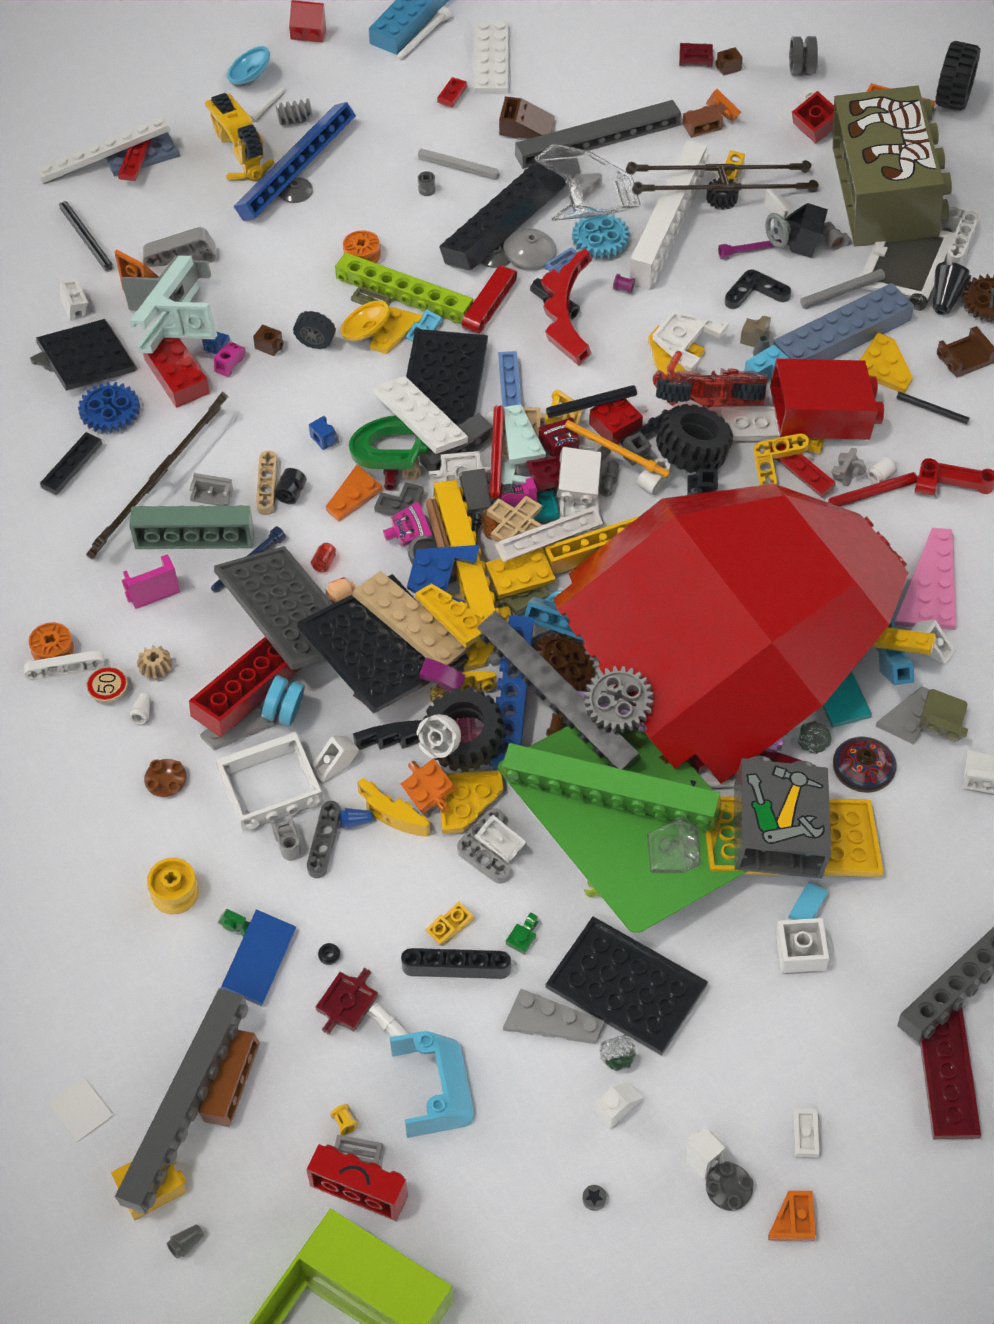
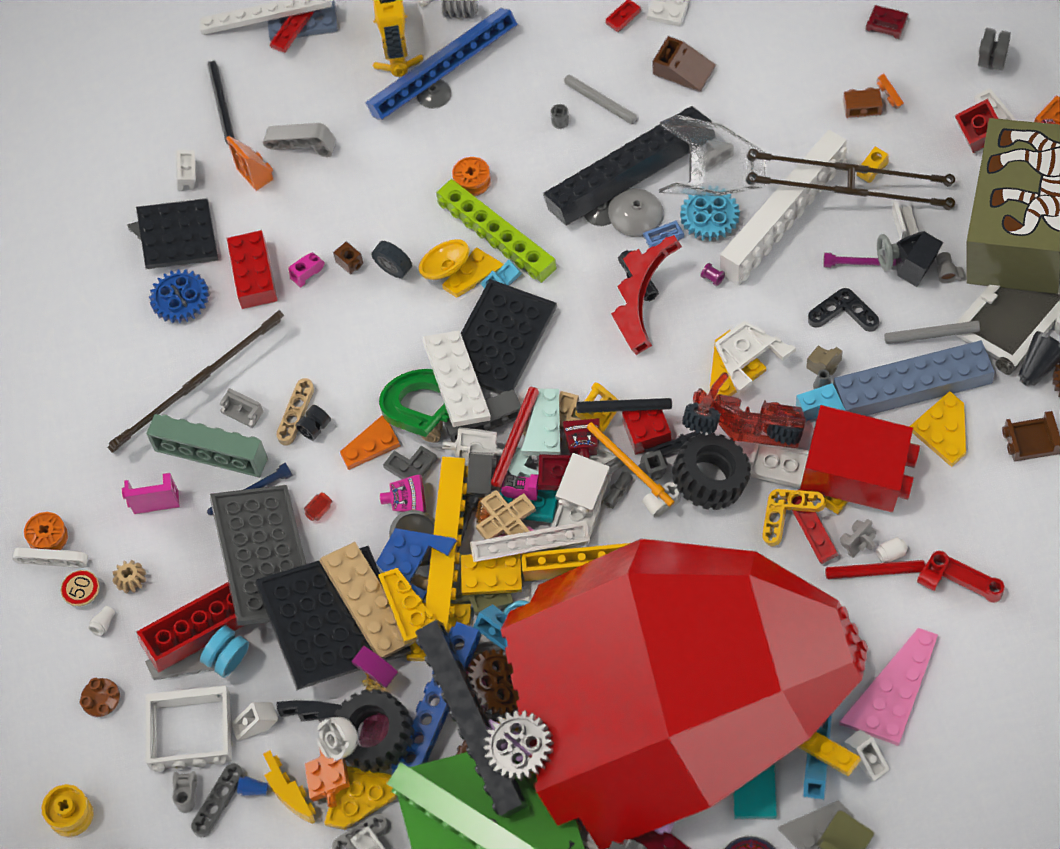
camera: 25 degrees right, 5 degrees up
(71, 463) = (126, 347): black plate -> none
(172, 297) = (271, 189): light aqua piece -> none
(216, 344) = (300, 247): blue bracket -> none
(322, 433) = (364, 371): blue brick -> none
(339, 589) = (320, 546): light nougat head -> none
(363, 299) = (471, 241): olive tile -> none
(390, 479) = (409, 440): dark red pin -> none
(437, 526) = (431, 504): medium nougat axle -> none
(480, 680) = (416, 677): yellow slope -> none
(489, 299) = (574, 261): red beam -> none
(509, 378) = (561, 357): medium blue plate -> none
(603, 131) = (752, 95): dark grey brick -> none
(703, 481) = (706, 523): black brick -> none
(720, 200) = (851, 201): black tyre -> none
(729, 61) = (916, 37): reddish brown brick -> none
(814, 737) = (708, 827): clear piece -> none
(932, 407) = (974, 491): black bar -> none

